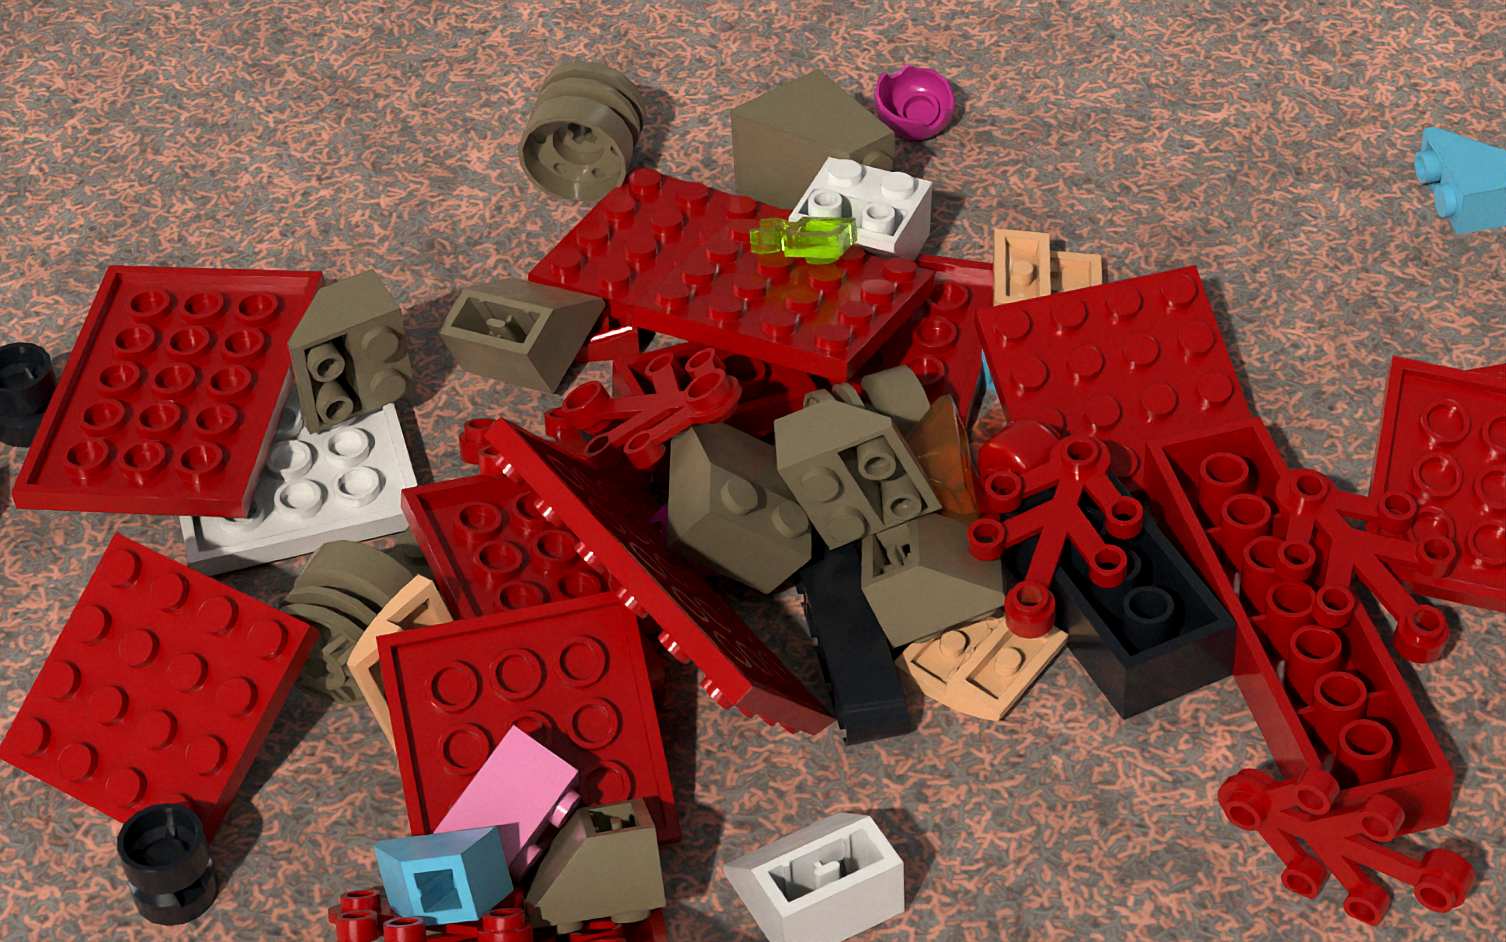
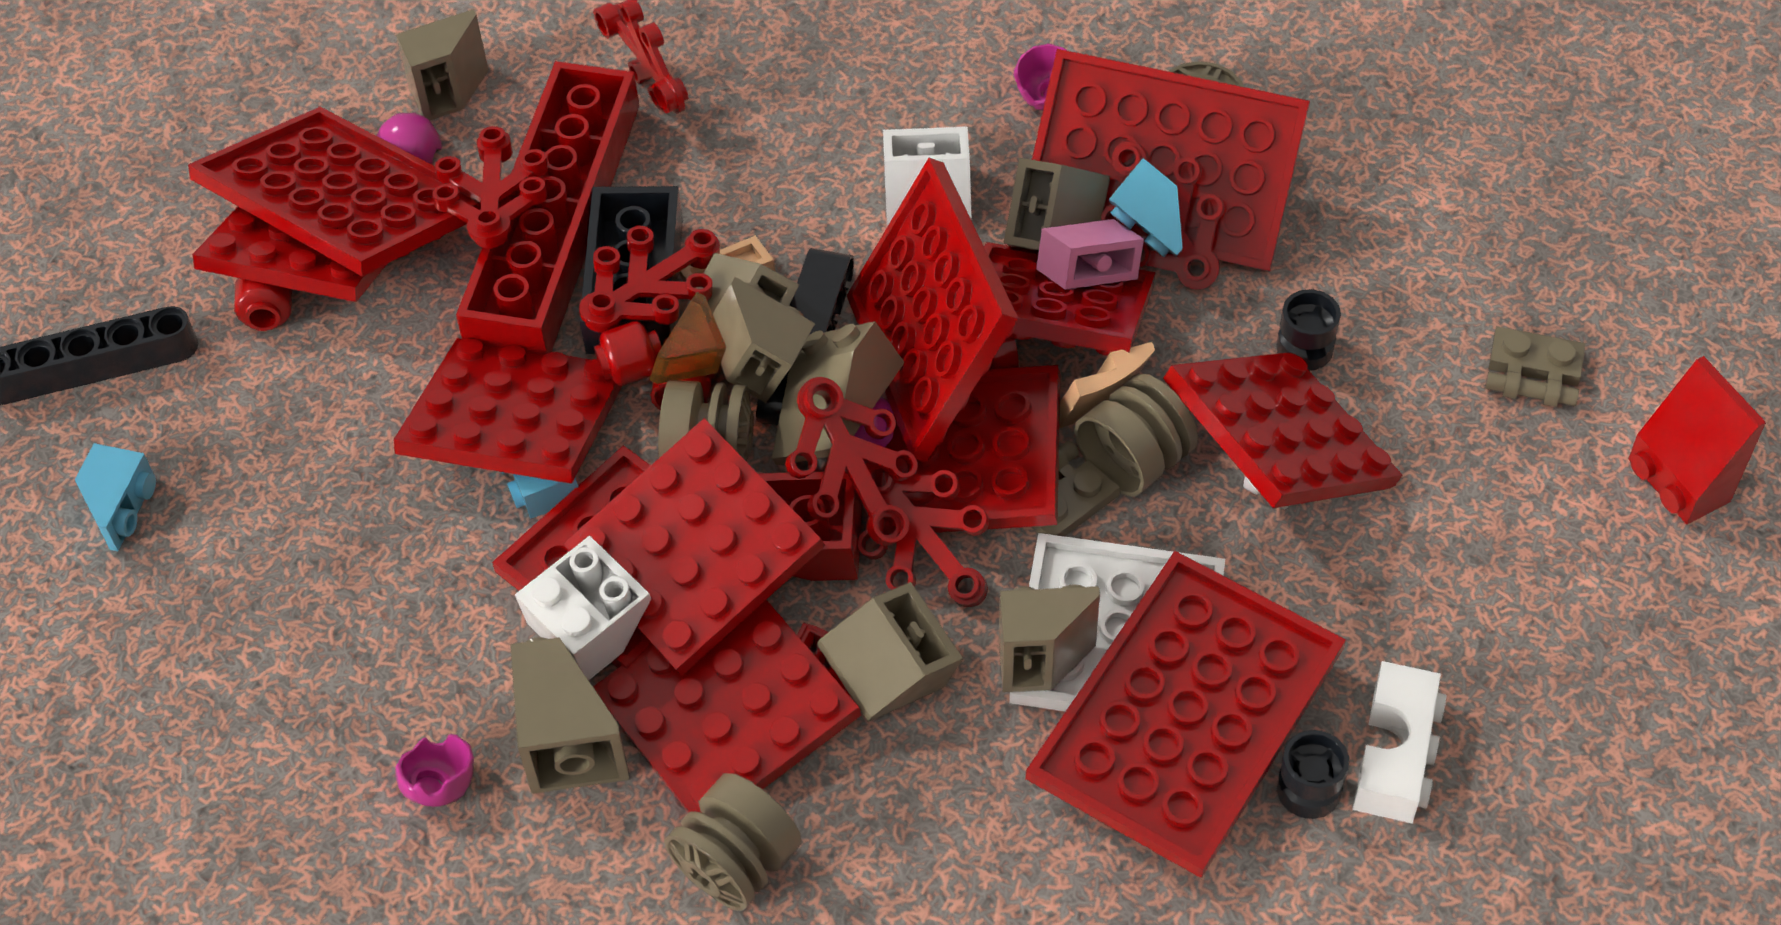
camera: 155 degrees left, 10 degrees up
(815, 238) = (647, 557): clear neon green plate -> none
(1029, 269) = (480, 533): light nougat slope -> none

